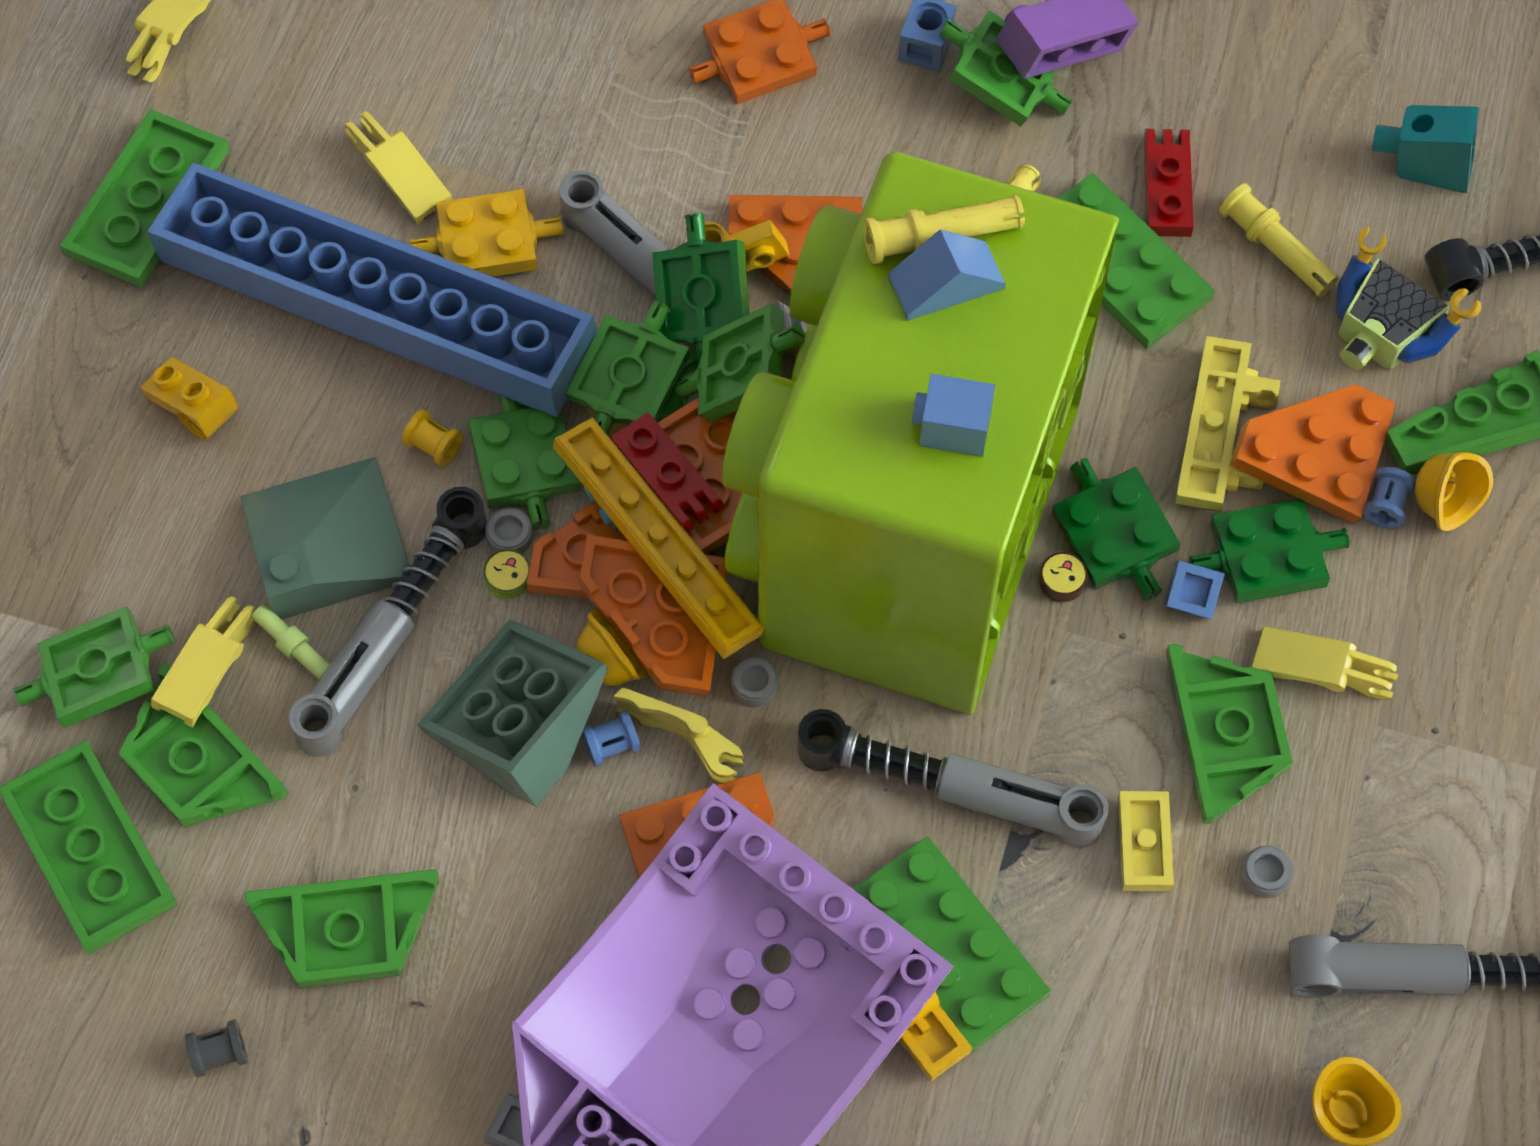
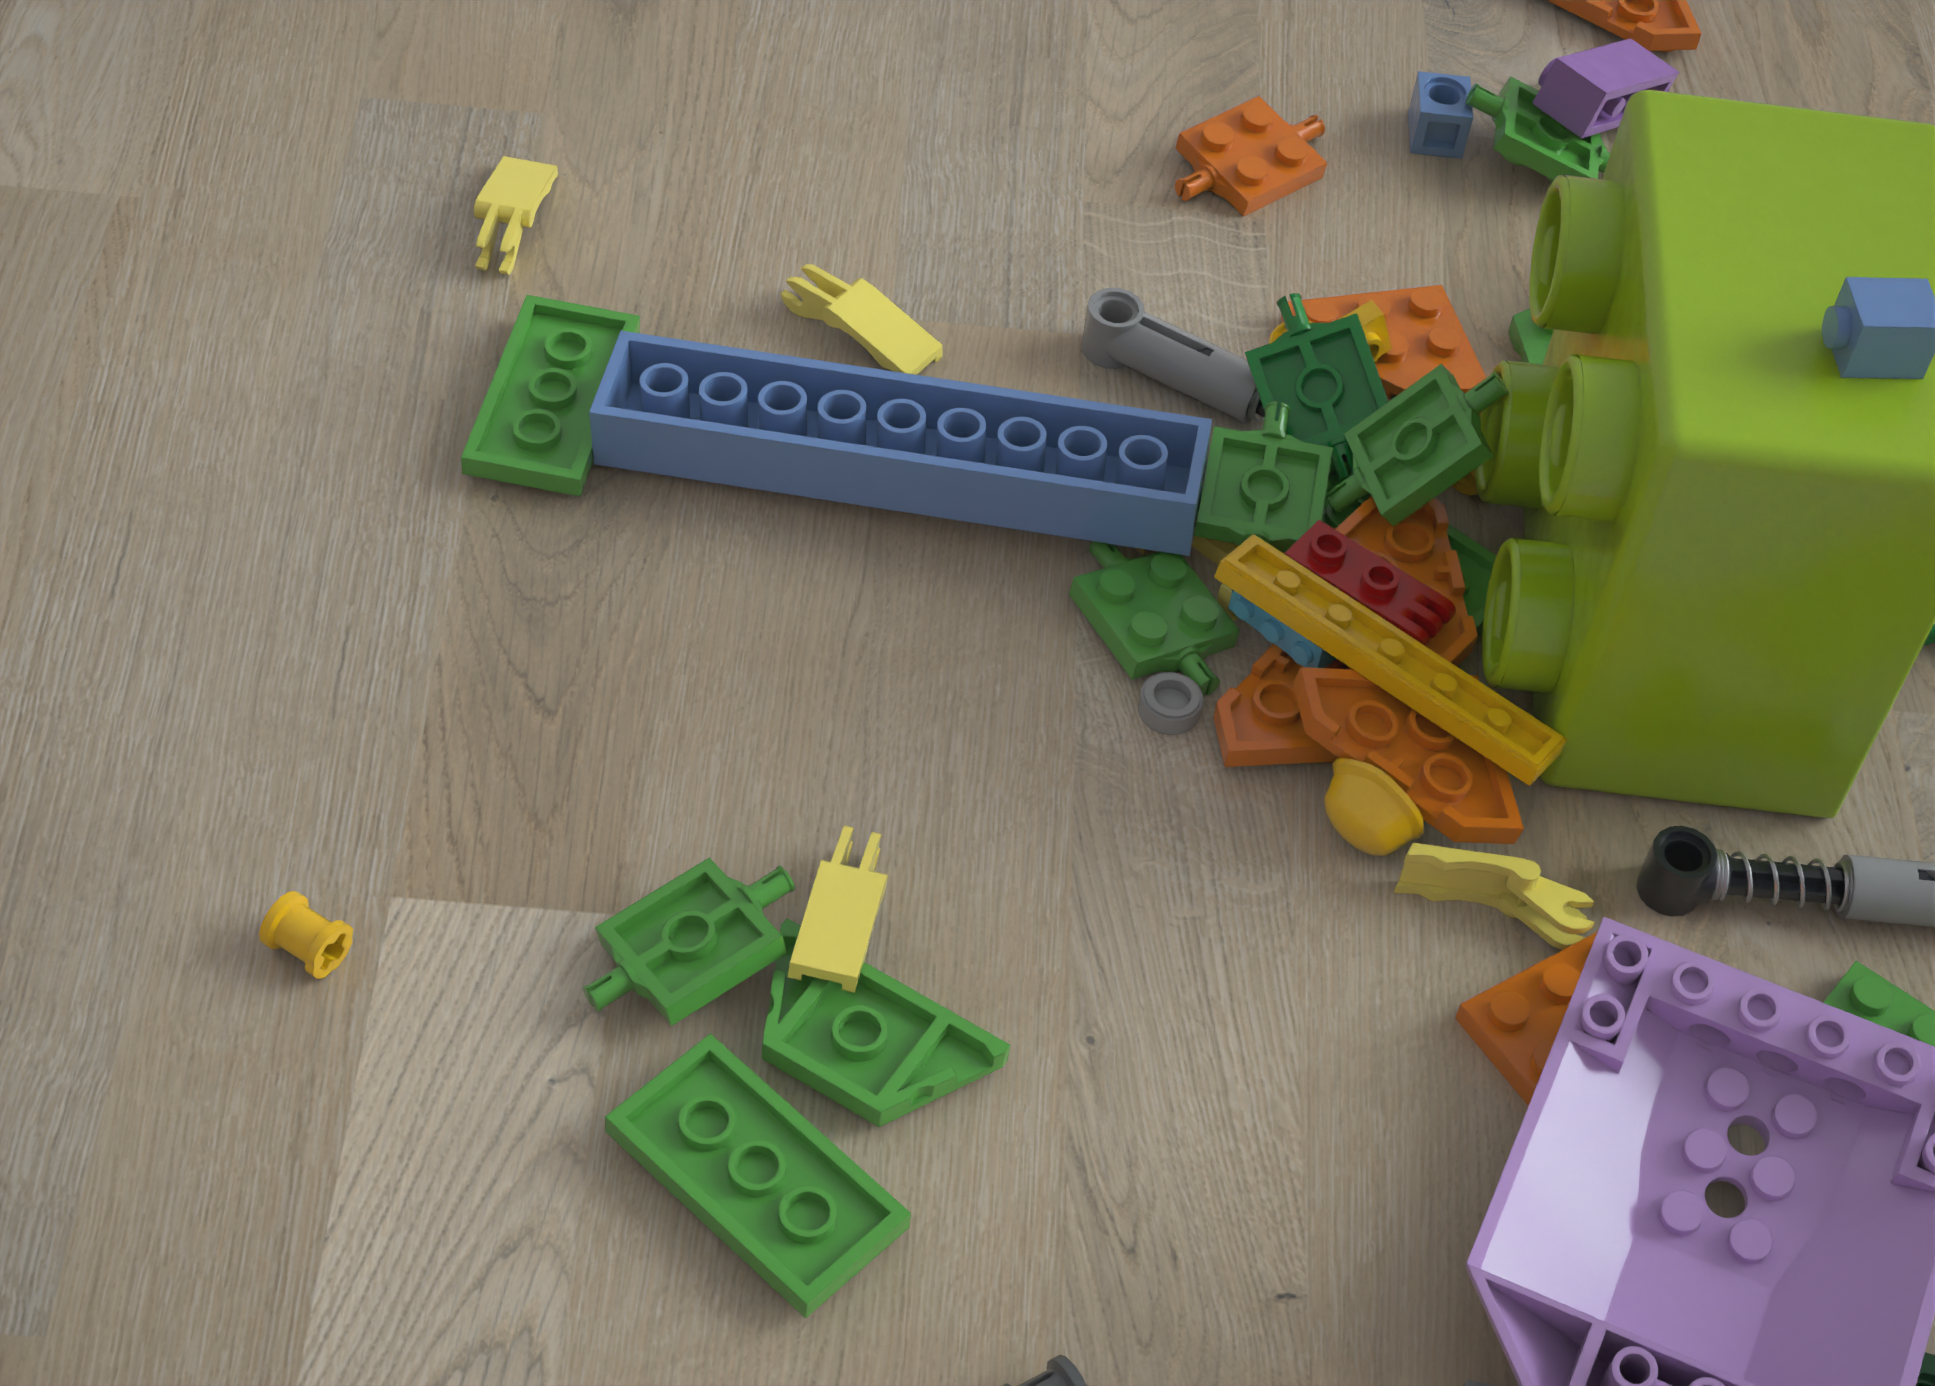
camera: 20 degrees left, 15 degrees down
(191, 396) = (708, 605): yellow plate -> none
(290, 641) = (942, 872): yellowish green bar -> none
(325, 538) = (934, 748): sand green slope -> none
(345, 926) = (1153, 1209): bright green wing -> none
(385, 627) = (1062, 834): piece -> none
(432, 438) = (1033, 607): yellow bush -> none
(489, 233) = (1015, 362): yellow plate -> none
(506, 573) = (1190, 749): light yellow tile -> none
(518, 710) = (1282, 900): sand green slope -> none
(611, 738) = (1410, 914): medium blue bush -> none
(754, 681) = (1554, 824): light grey tile -> none
(912, 230) = (1731, 151): light yellow pin -> none
(944, 274) = (1778, 194): medium blue slope -> none

